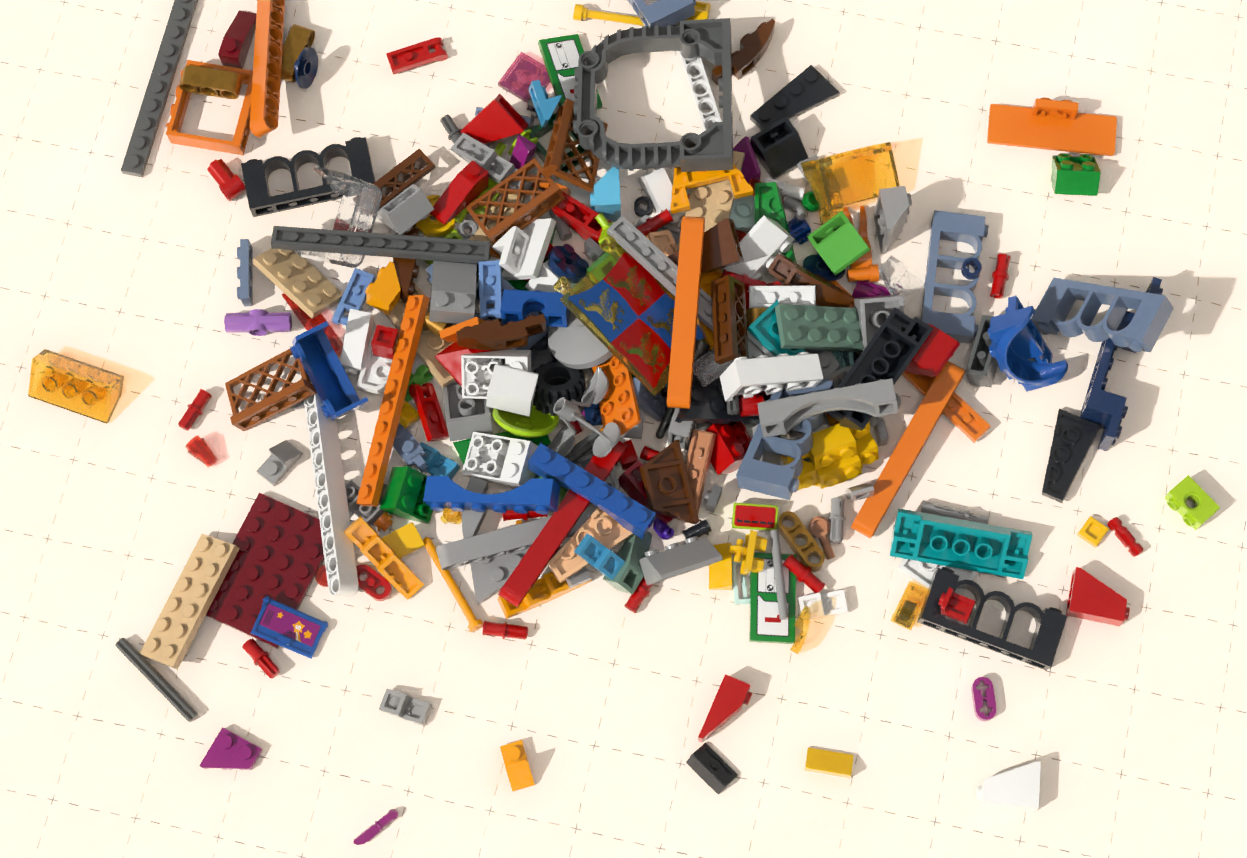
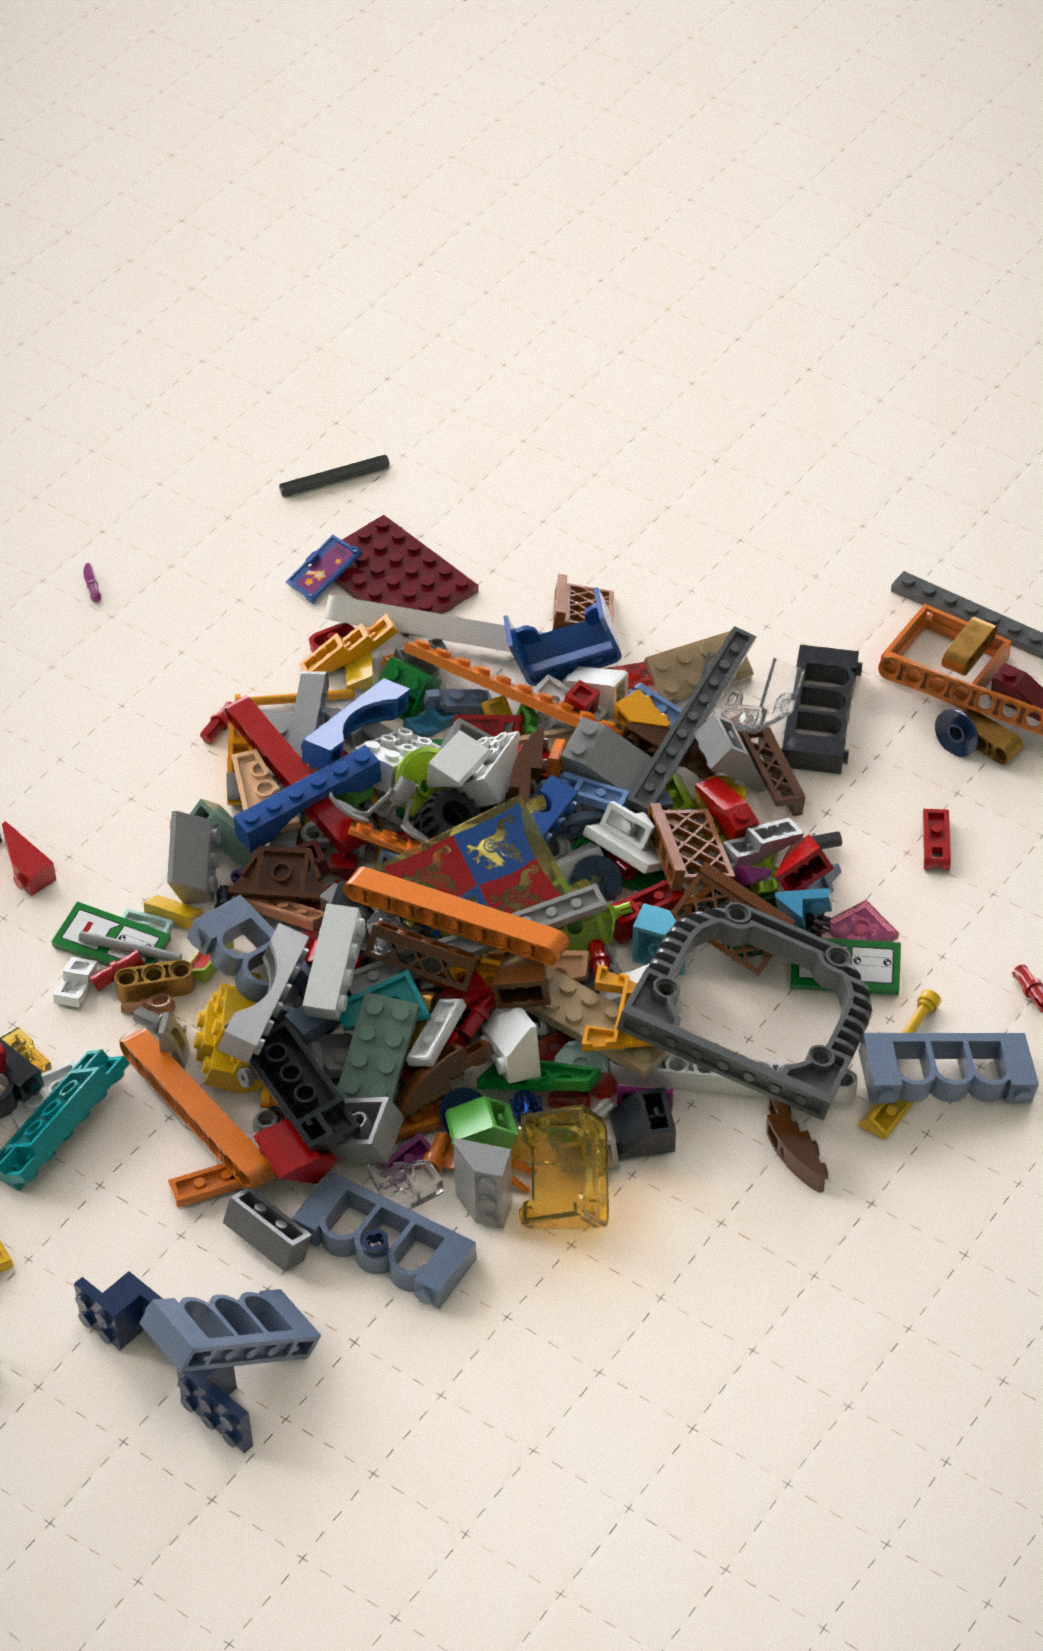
camera: 110 degrees right, 25 degrees down
(75, 385) = (672, 485): clear yellow slope -> none
(189, 601) = (395, 509): tan plate -> none
(194, 410) = (596, 562): red axle -> none
(201, 451) = (547, 555): clear red cone -> none
(228, 183) = (862, 642): red piece -> none
(231, 752) = (231, 507): magenta wing -> none
(245, 272) = (707, 626): sand blue plate -> none
(258, 322) = (667, 626): medium lavender piece -> none
(261, 658) = (303, 545): red axle -> none
(282, 458) = (502, 603): light grey slope -> none
(405, 707) = (194, 631): light grey slope -> none
(517, 766) = (77, 694): light orange slope -> none
(599, 556) = (231, 796): dark azure slope -> none
(751, 544) = (168, 920): yellow hips -> none
(802, 93) = (709, 1176): black wing -> none
(803, 623) = (58, 945): clear yellow slope -> none
(881, 432) = (233, 1097): flat silver tile -> none
(940, 510) = (94, 1132): light grey pin -> none
(1000, 276) = (358, 1291): red pin -> none
(1017, 340) = (239, 1241): blue piece -> none
(1052, 127) = (527, 1432): orange bracket -> none
(1068, 450) = (88, 1259): black wing -> none
(1075, 175) = (449, 1424): green slope -> none

